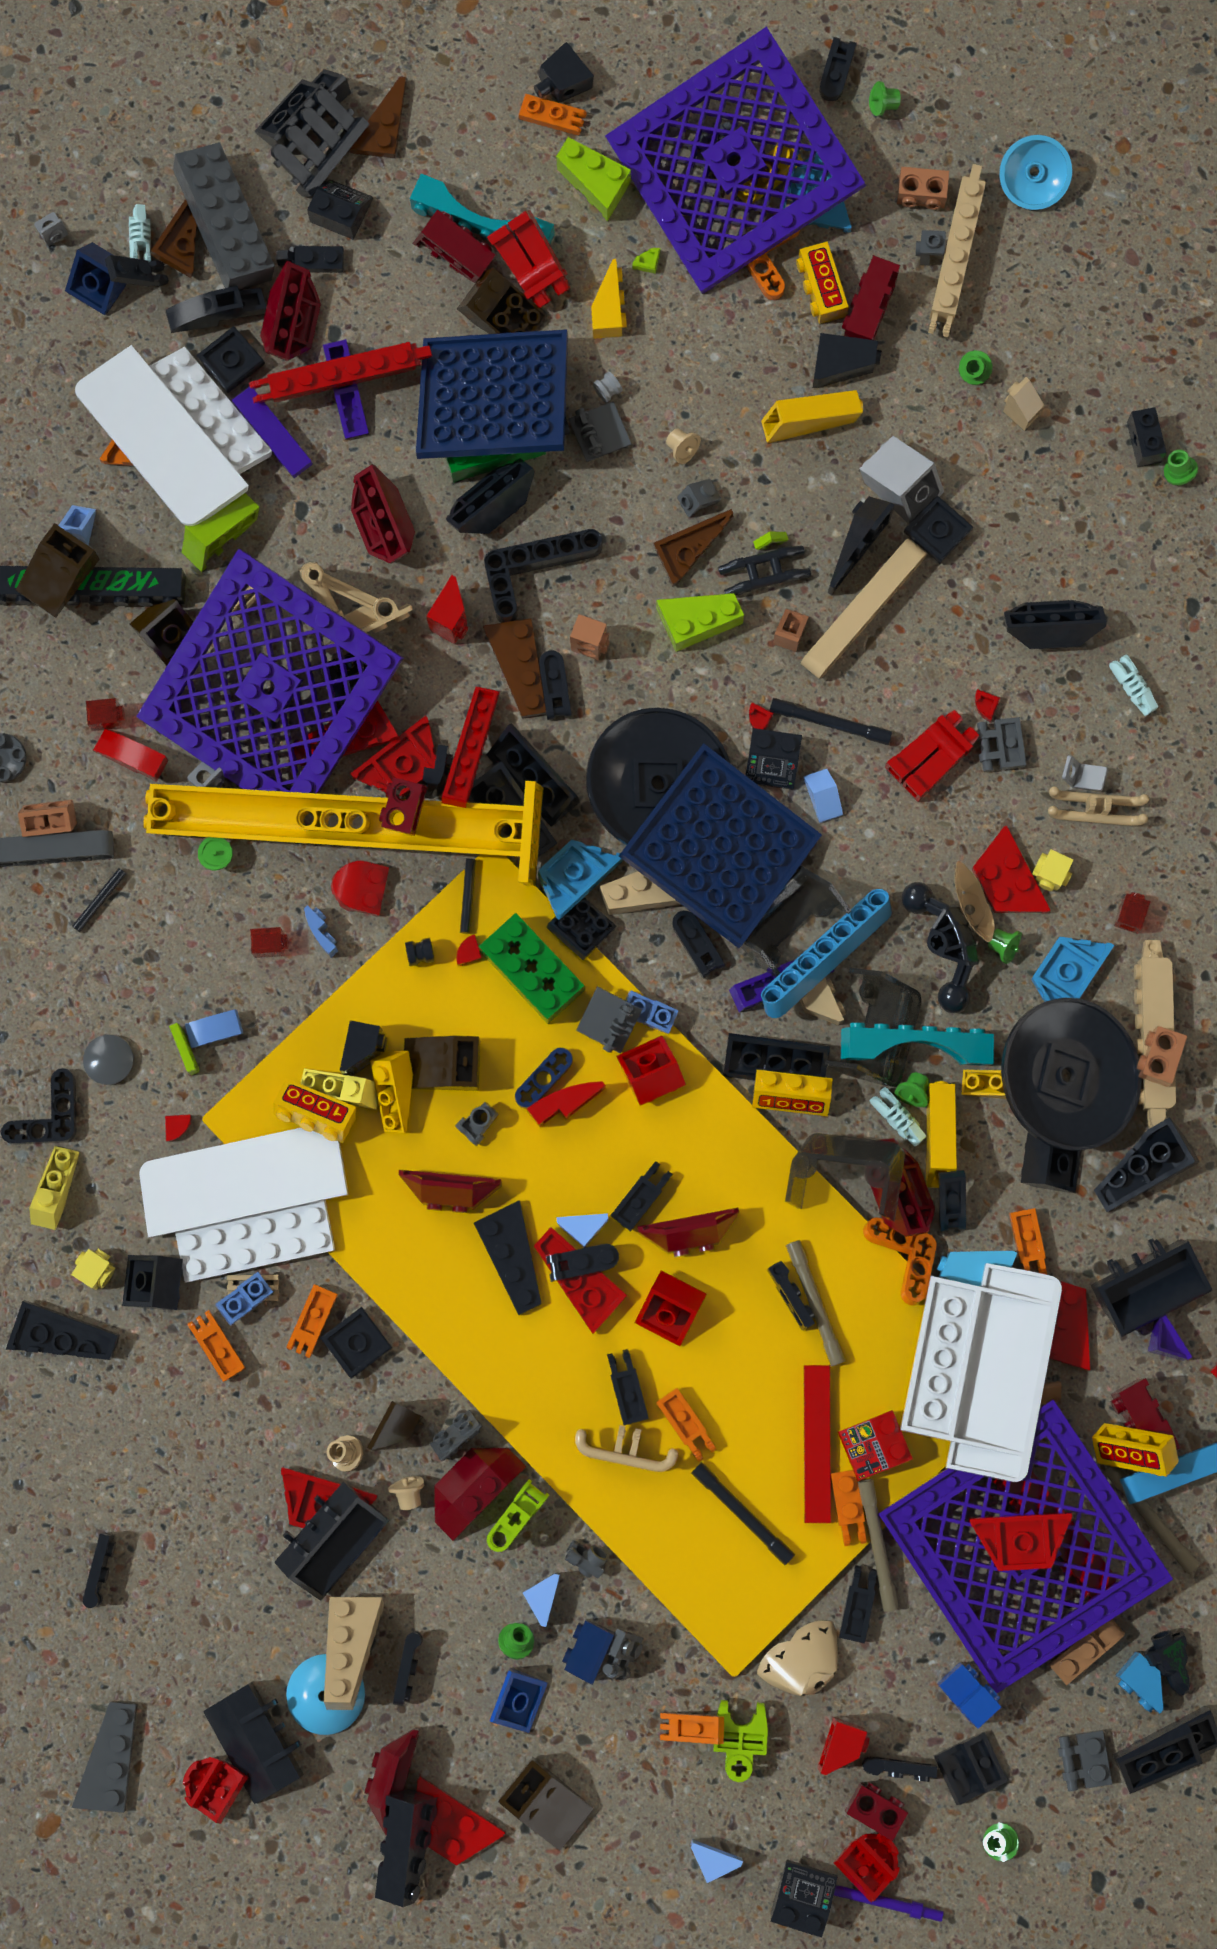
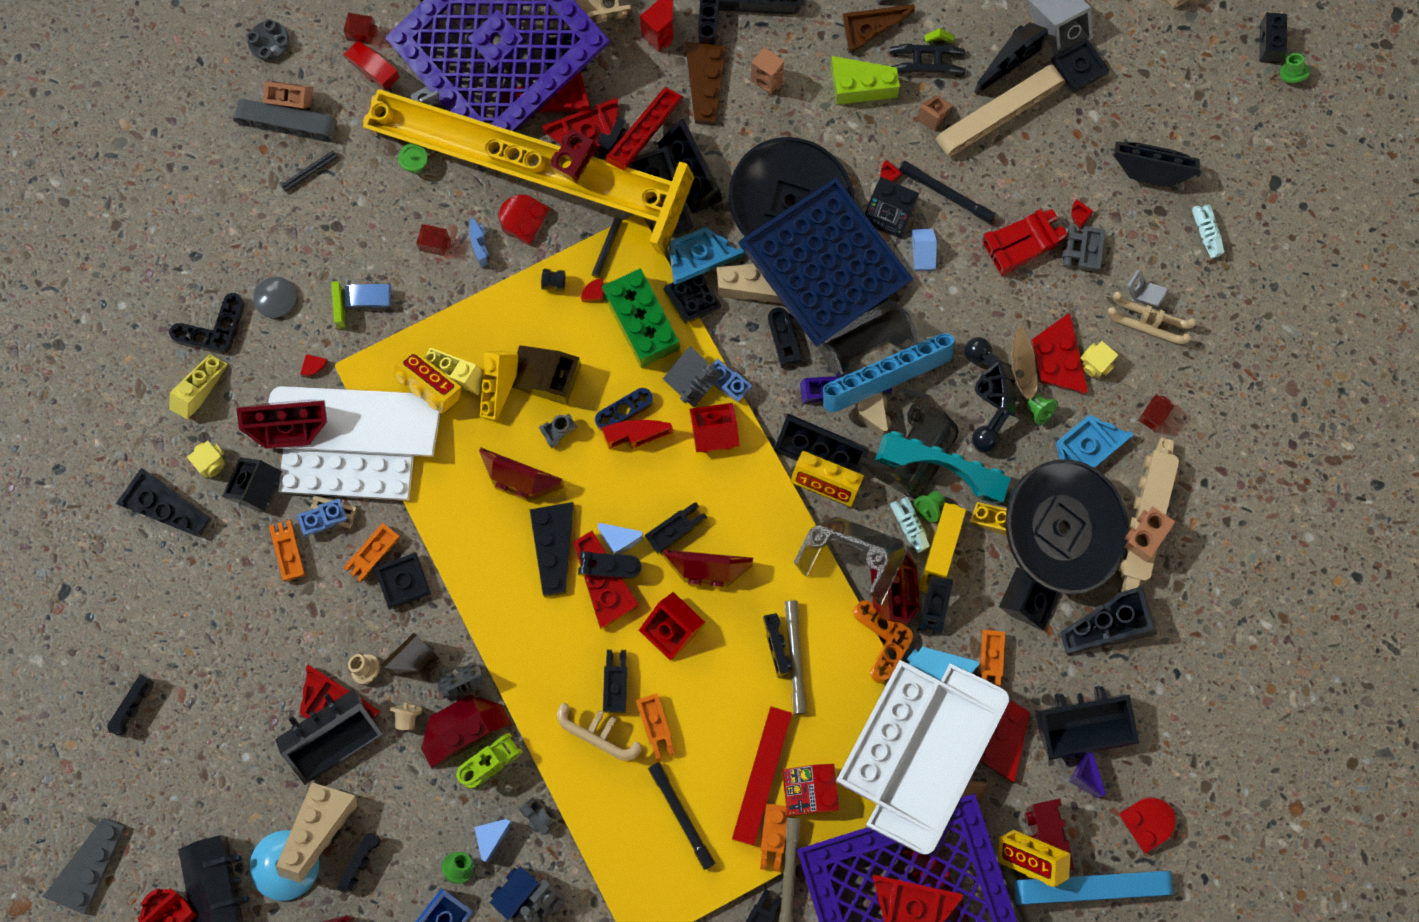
camera: 15 degrees right, 5 degrees down
(168, 1204) = (283, 422): none -> dark red wedge
(361, 1045) = (480, 337): black slope -> none
(554, 684) = (729, 102): black plate -> none

